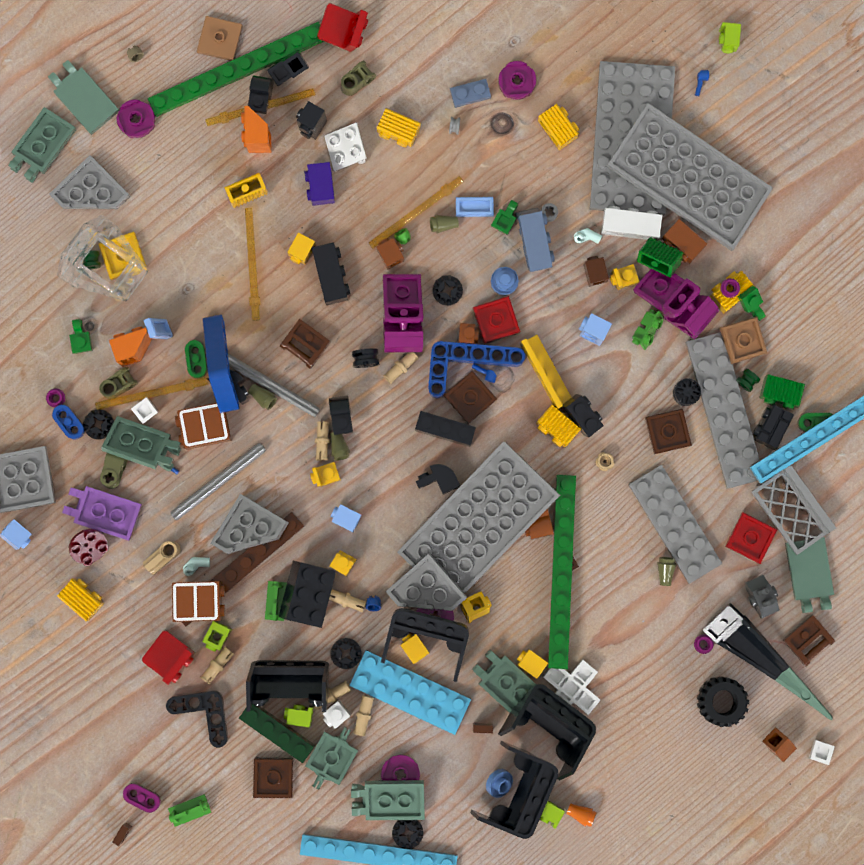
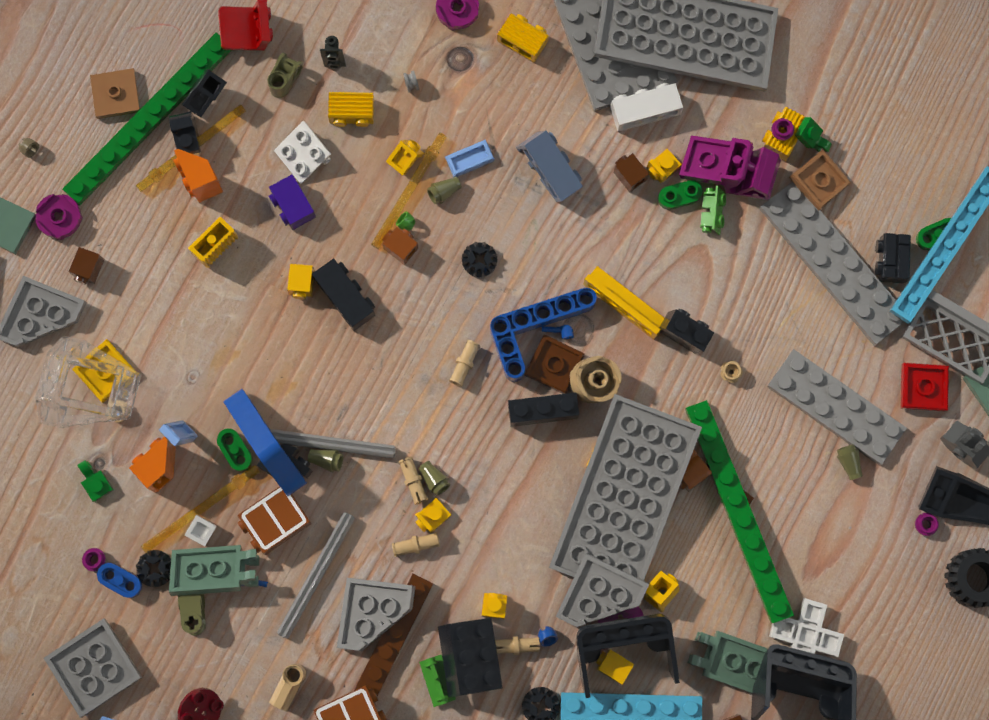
camera: 25 degrees left, 5 degrees down
(91, 260) = (72, 389): dark green wheel -> none
(104, 512) = (202, 664): medium lavender tile -> none
(119, 383) = (159, 512): olive piece -> none
(141, 167) = (86, 266): none -> reddish brown brick
(194, 563) = (328, 678): light aqua arm -> none
(254, 300) = (272, 357): clear yellow bar -> none
(303, 491) = (416, 544): none -> tan pin
(307, 337) = (349, 374): reddish brown plate -> none
(311, 120) = (253, 138): black brick -> none
(340, 415) = (422, 442): black brick -> none
(345, 517) = (476, 553): light blue brick -> none
(365, 358) = (422, 369): black wheel -> none
(401, 78) = (332, 55): none -> pearl dark grey hinge
(402, 313) = (442, 304): magenta piece -> none
(424, 183) = (404, 156): none -> yellow bracket
(443, 475) = (563, 462): black brick -> none
(468, 333) = (522, 295): dark orange brick -> none
(470, 93) = (412, 41): sand blue plate -> none
(496, 320) = (546, 268): red plate -> none
(500, 432) = (608, 379): none -> tan brick
(504, 219) = (509, 158): green plate -> none
(504, 281) = (537, 223): medium blue plate -> none
(531, 663) = (750, 626): yellow brick -> none
(555, 211) = (557, 125): light grey bush -> none
(557, 426) = (664, 355): yellow brick -> none
(585, 235) = (601, 139): light aqua arm -> none
(594, 329) = (658, 233): light blue brick -> none
(627, 305) = (680, 194): none -> green plate
(660, 257) = (693, 128): green brick -> none
(668, 431) = (784, 310): reddish brown tile -> none
(685, 240) = (710, 102): dark orange brick -> none
(686, 392) = (785, 260): black wheel -> none
(748, 380) = (844, 219): dark green wheel -> none
(782, 391) = (885, 216): green brick -> none

